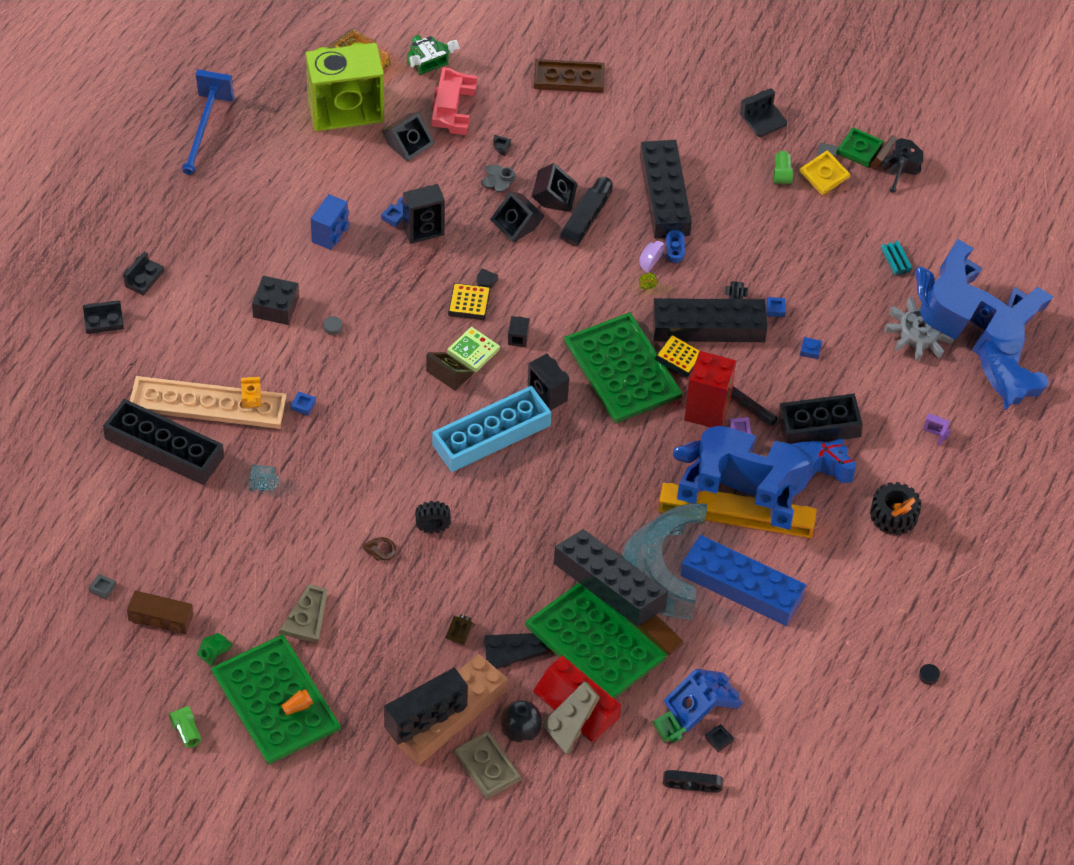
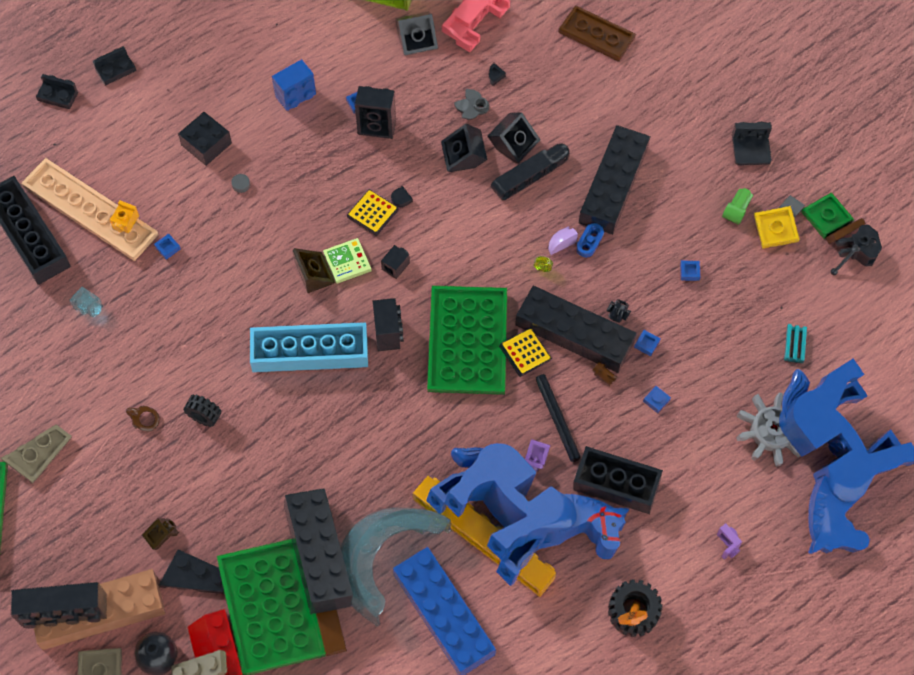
camera: 30 degrees right, 10 degrees up
(710, 389) = (523, 403): red brick -> none
(755, 345) = (601, 371): none -> reddish brown pin
(775, 236) = (690, 270): none -> blue plate

